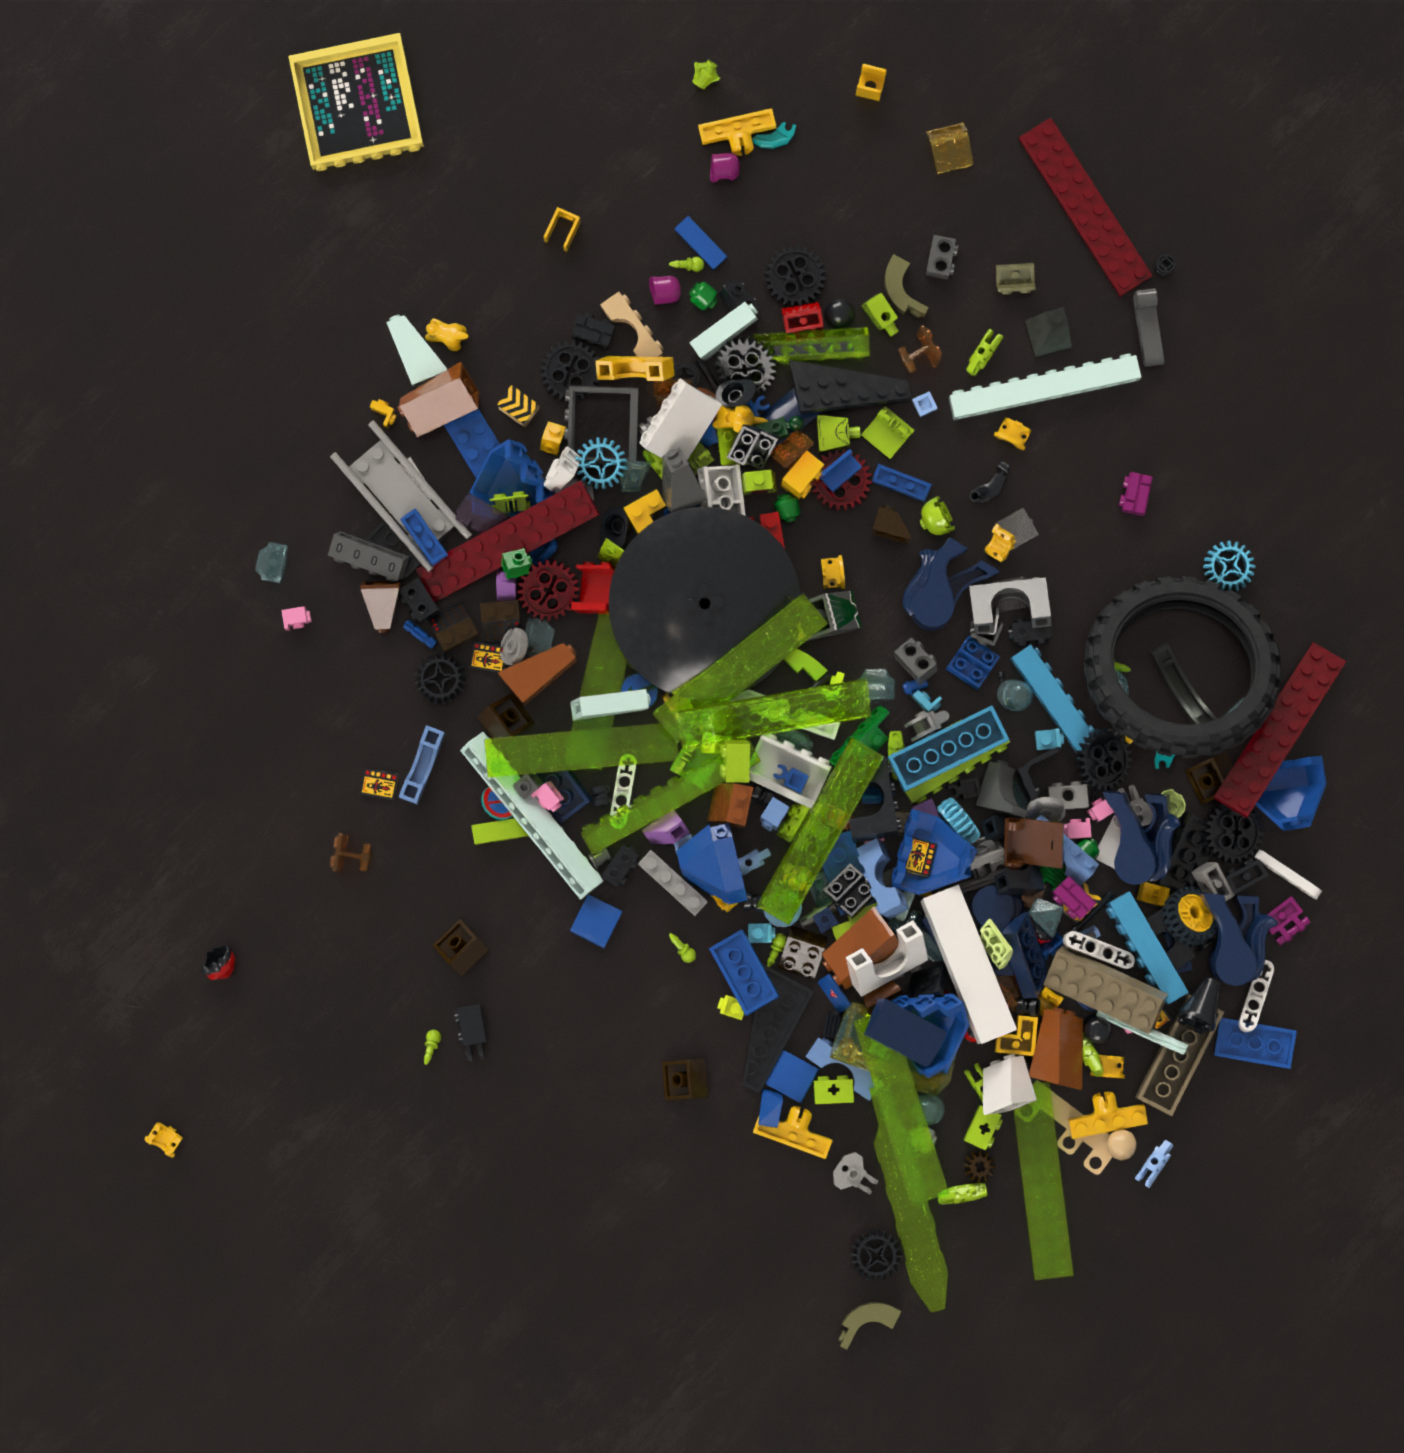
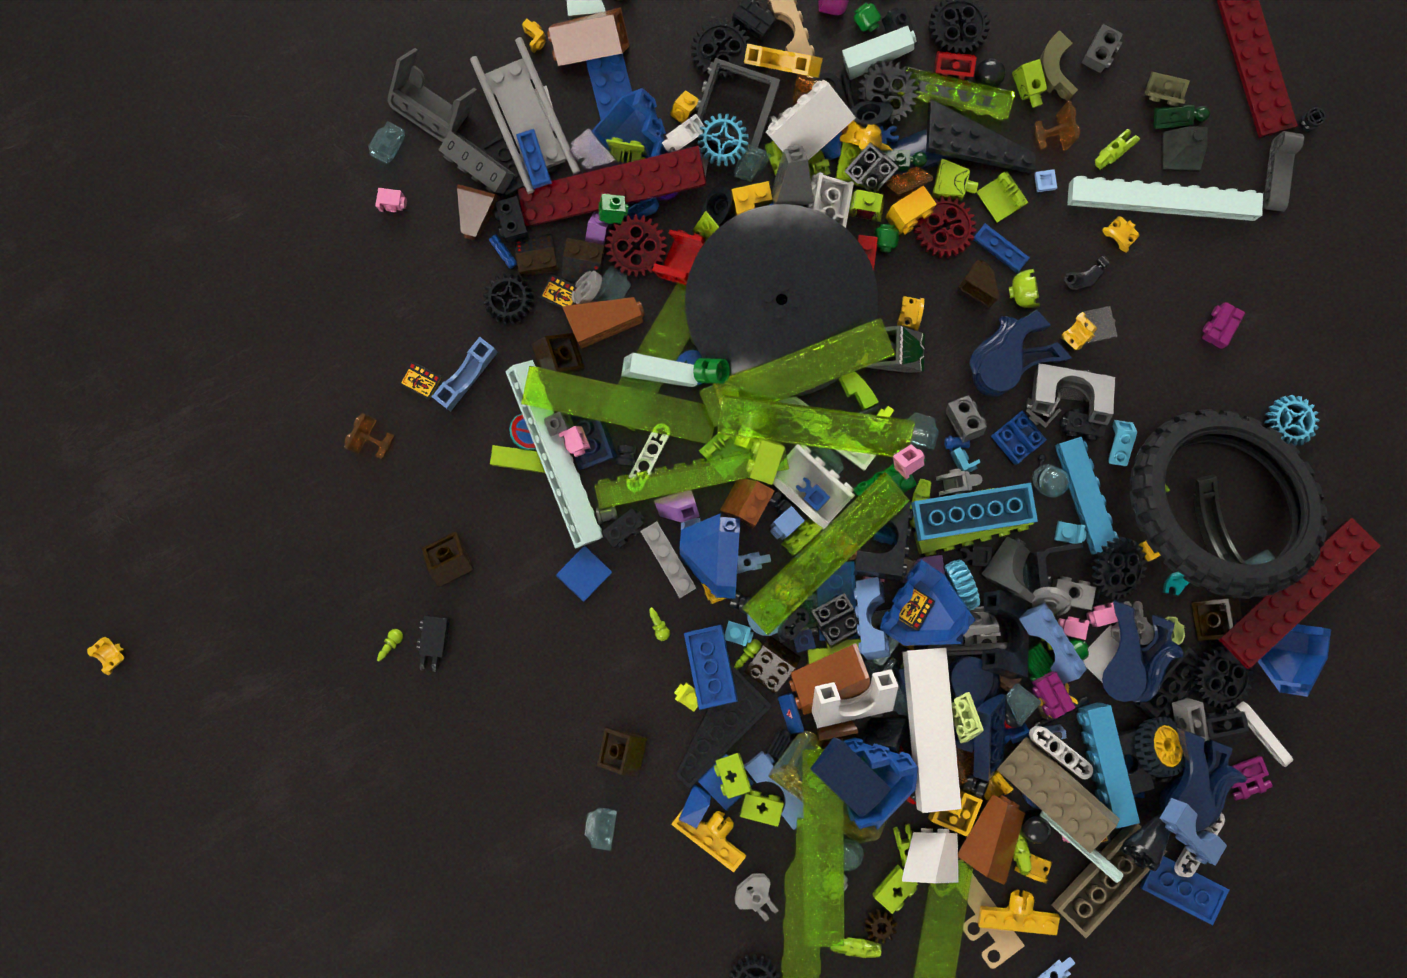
camera: 15 degrees right, 0 degrees up
(219, 963) = (213, 503): black hair -> none
(298, 514) = (422, 105): none -> dark grey windscreen
(518, 406) = (661, 66): piece -> none
(658, 690) = (711, 370): none -> green wheel
(687, 1156) = (601, 827): none -> clear light blue slope
(806, 905) = (790, 621): none -> black beam
(806, 1072) = (735, 765): none -> lime brick
(840, 471) = (948, 216): blue panel -> none
(872, 718) = (908, 461): none -> bright pink brick
(1031, 843) = (1030, 629): reddish brown door -> none
(1035, 301) = (1179, 116): none -> dark green plate
(1073, 637) = (1122, 443): none -> medium azure bracket
(1121, 1144) = (1025, 947): tan hair -> none
(1153, 894) = (1128, 713): yellow bracket -> none
(1222, 977) = (1182, 821): none -> medium blue arch

